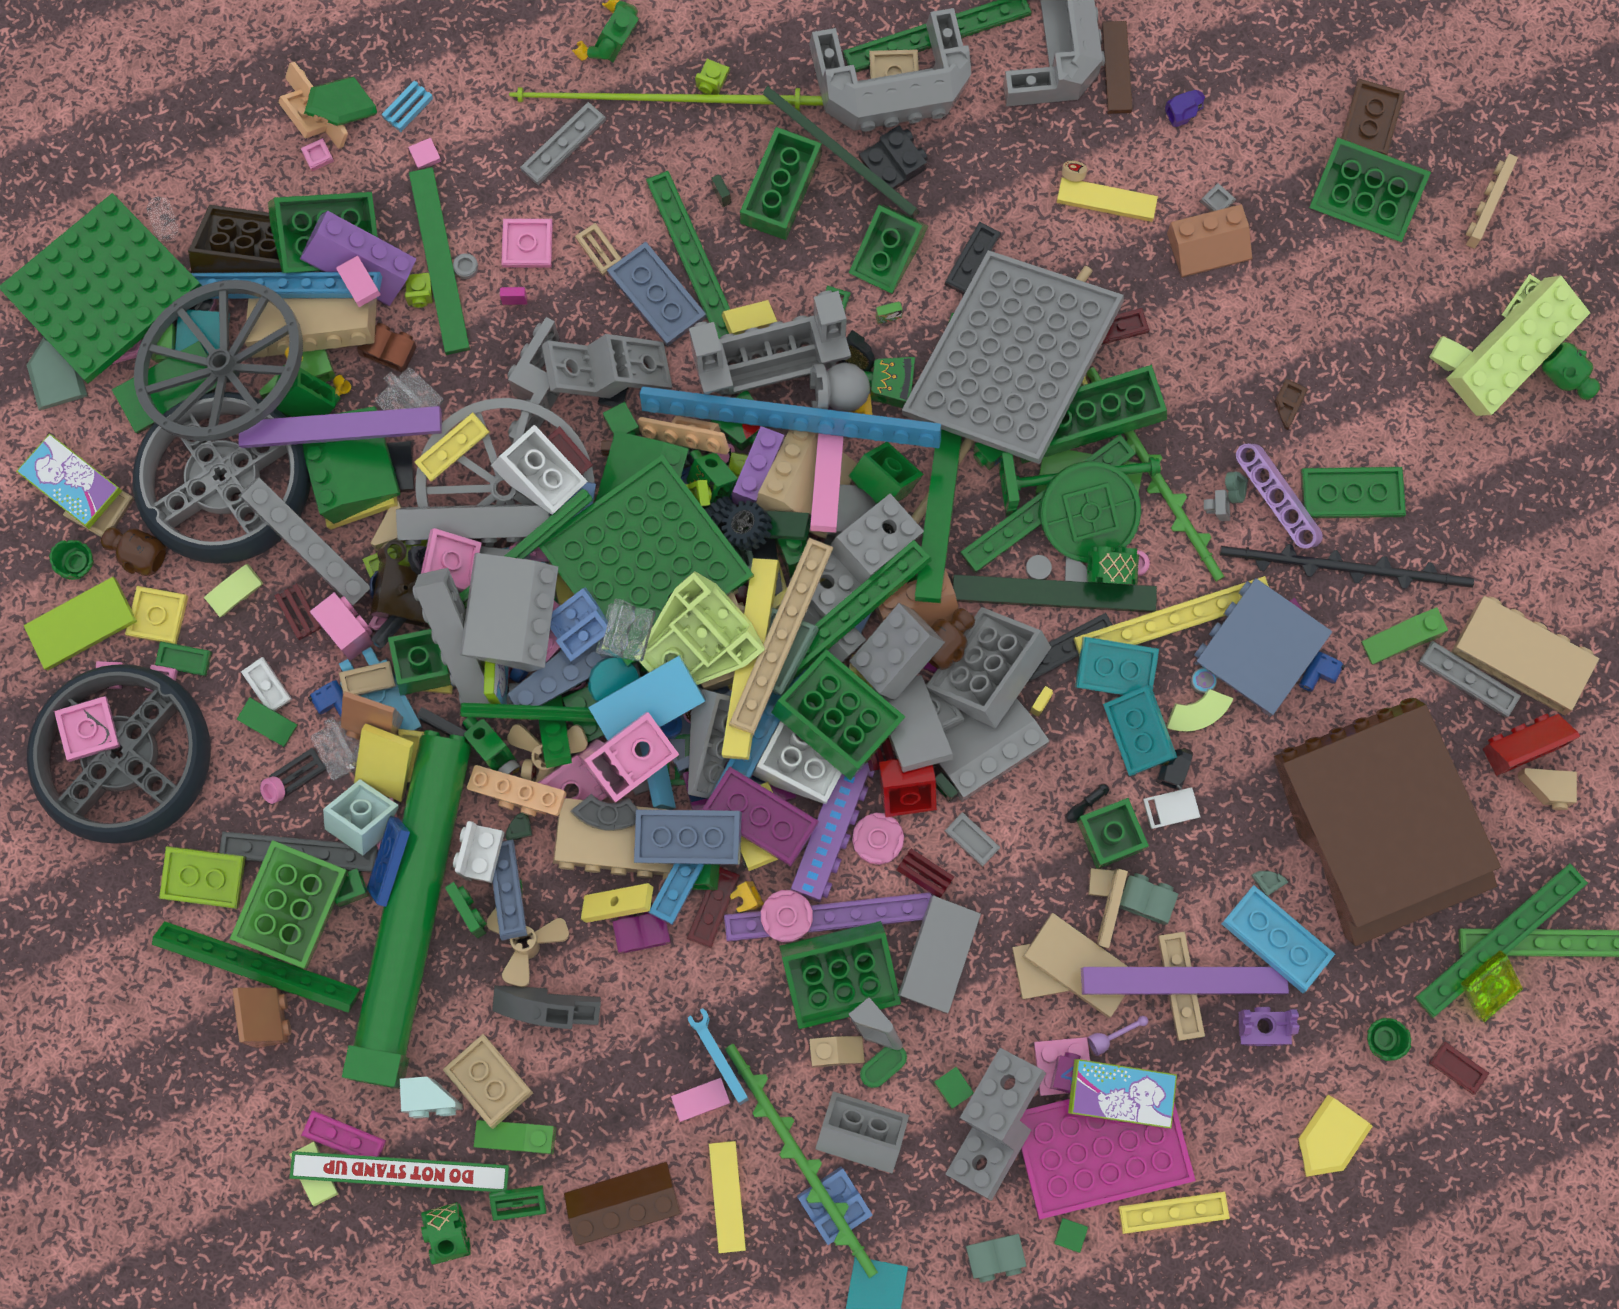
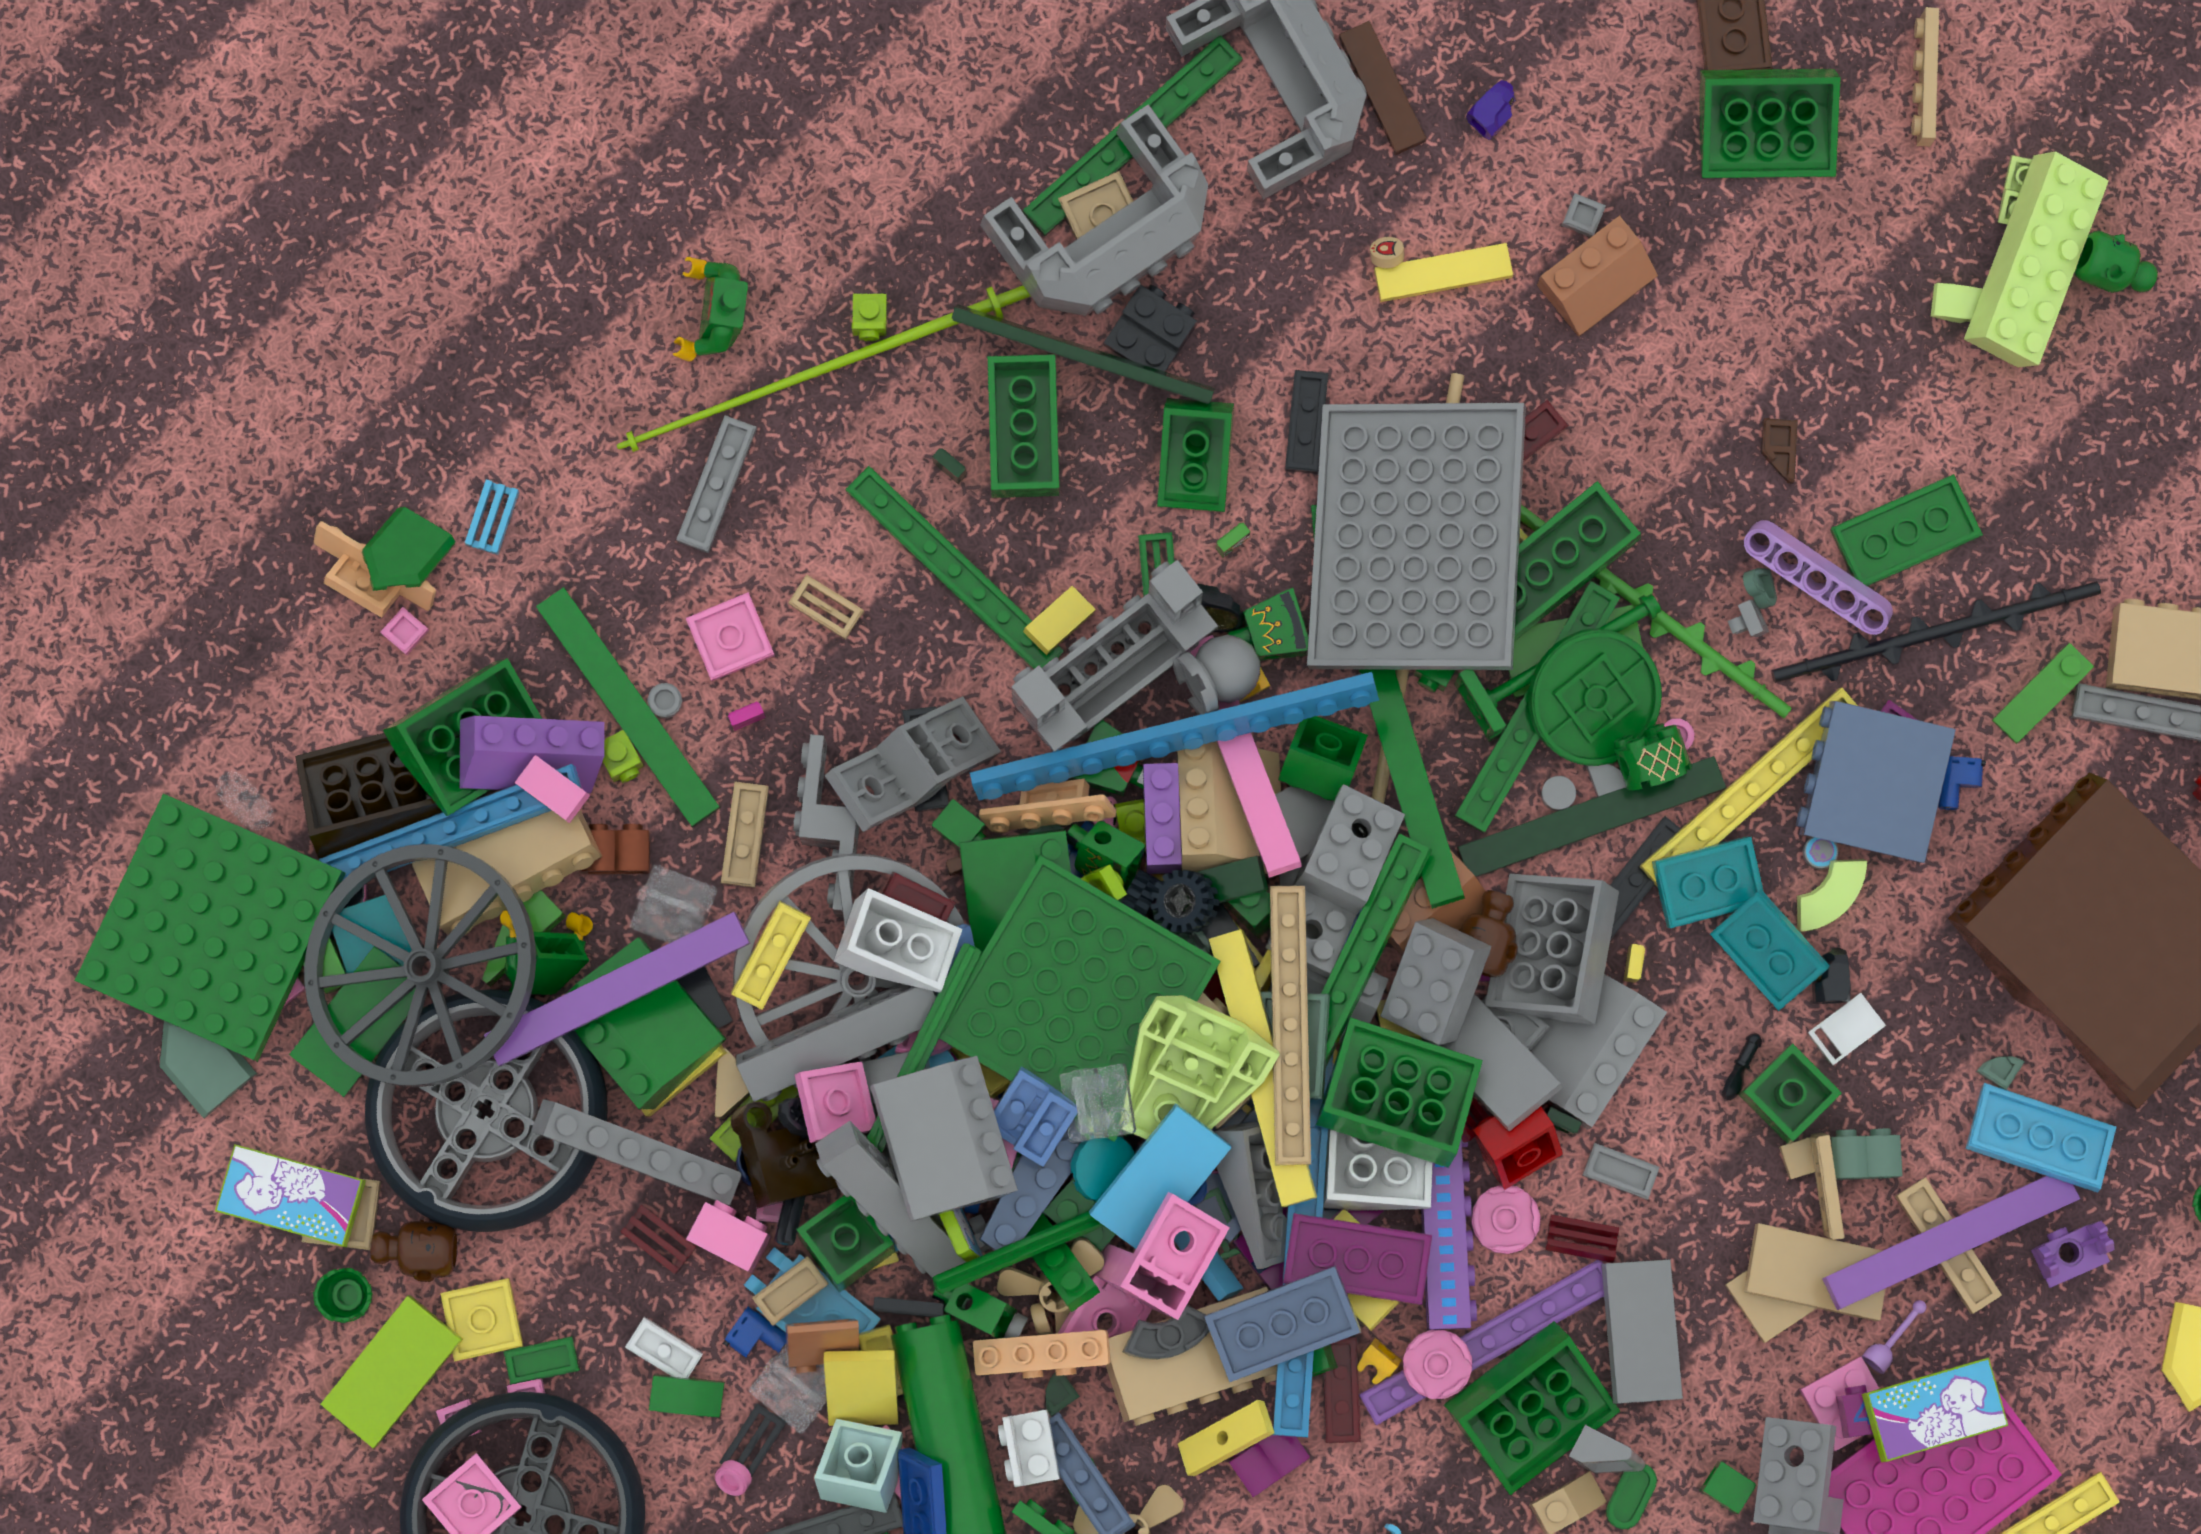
camera: 25 degrees left, 5 degrees up
(233, 590) = (566, 1247): yellowish green slope -> none
(424, 154) = (544, 572): bright pink tile -> none
(478, 372) = (744, 834): none -> tan tile
(656, 293) = (926, 636): sand blue plate -> none

